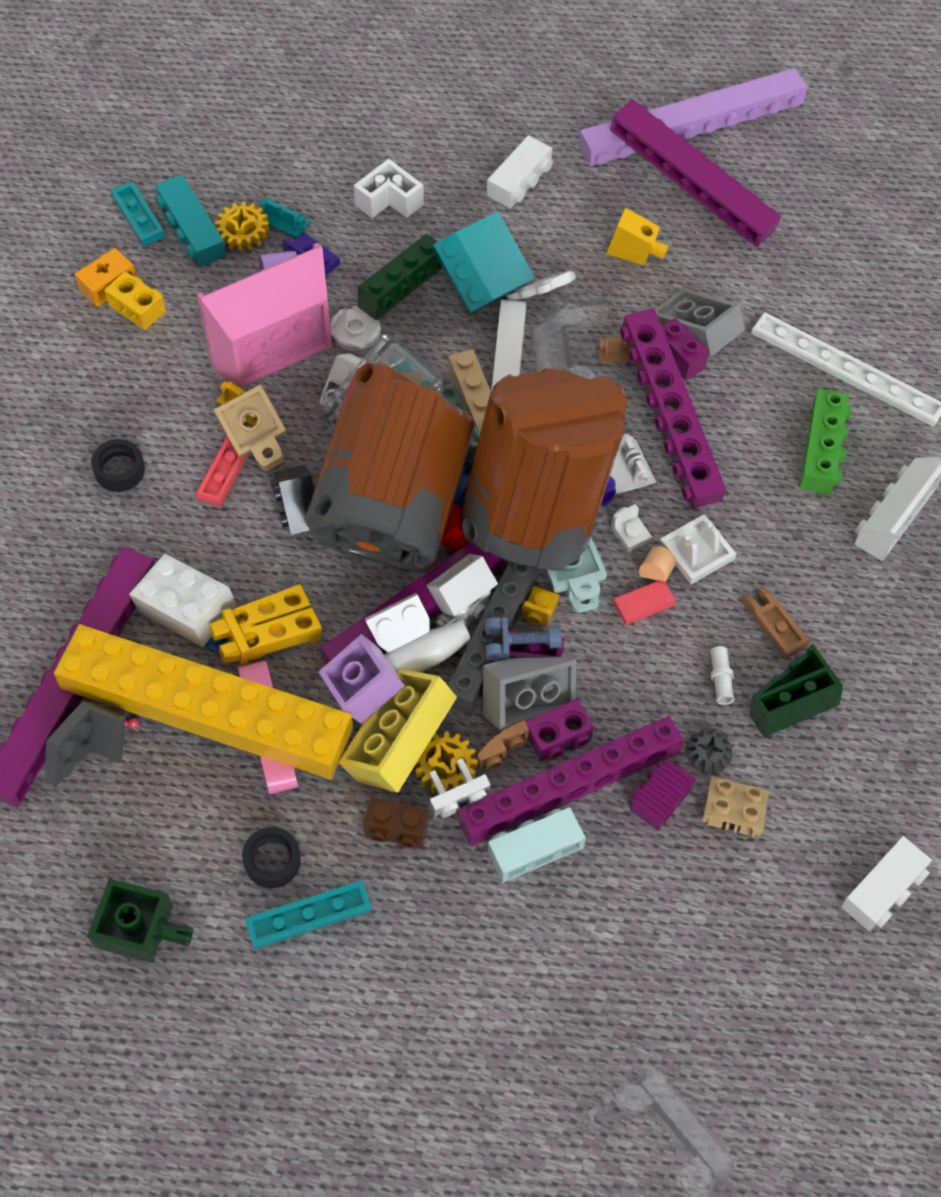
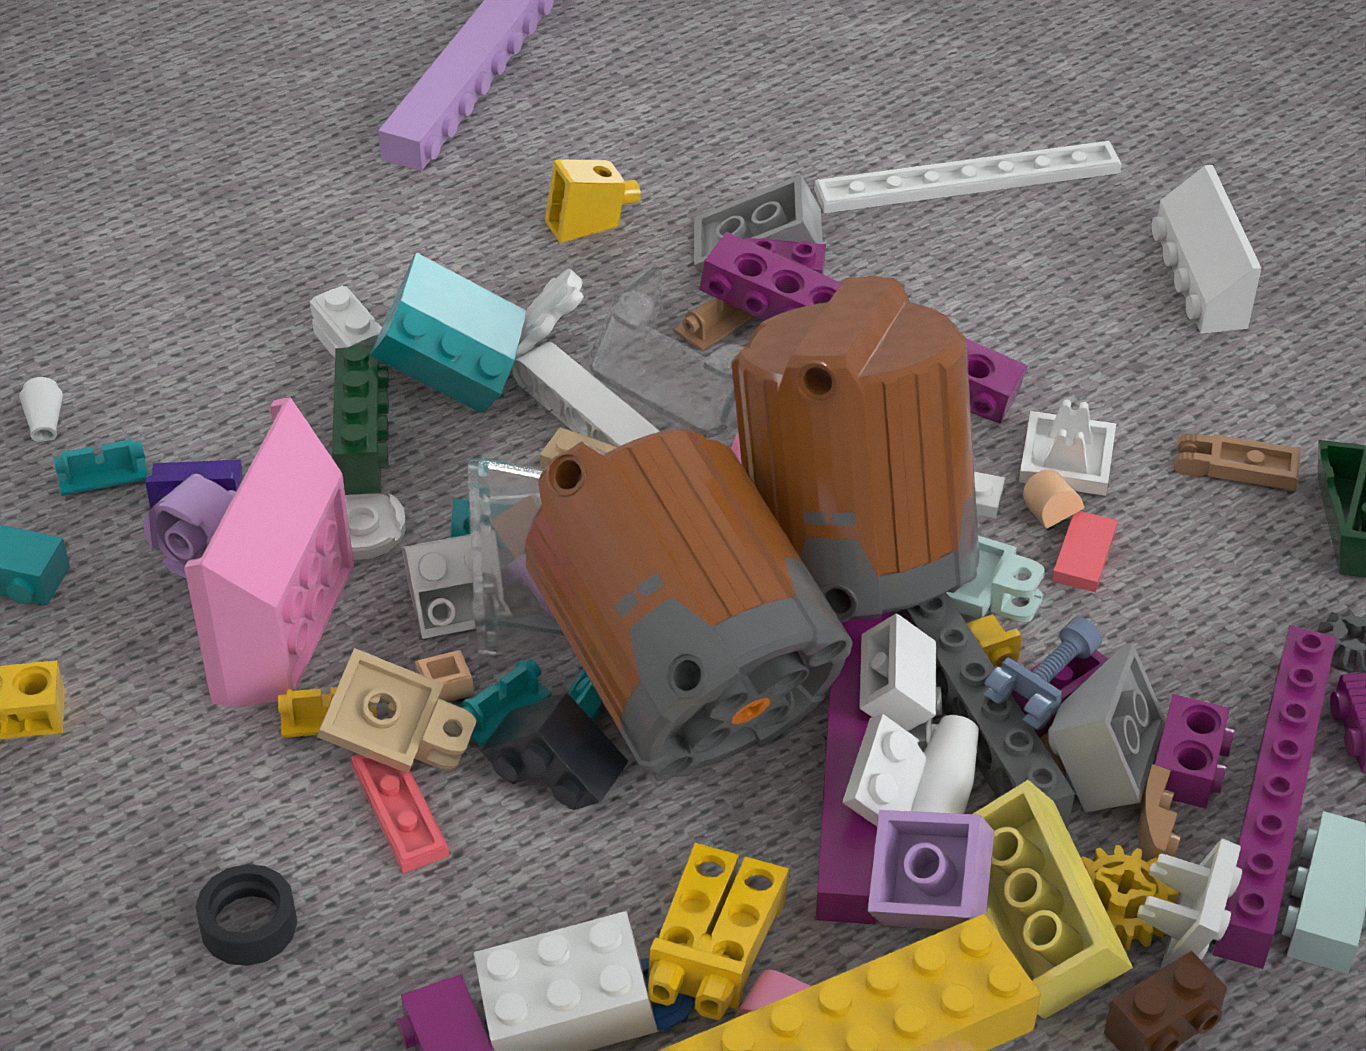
camera: 45 degrees left, 15 degrees down
(242, 226) = (60, 508): yellow gear -> none
(291, 169) = (41, 404): none -> white cone
(301, 428) = (451, 671): none -> light nougat brick
(311, 457) = (513, 691): none -> teal hinge
(386, 187) = (216, 335): white brick -> none
(452, 219) = (342, 320): none -> white brick
(519, 172) = (355, 222): white brick -> none
(695, 173) = (568, 90): magenta brick -> none
(722, 675) = (1264, 554): white pin -> none
(825, 440) = (1047, 254): bright green brick -> none

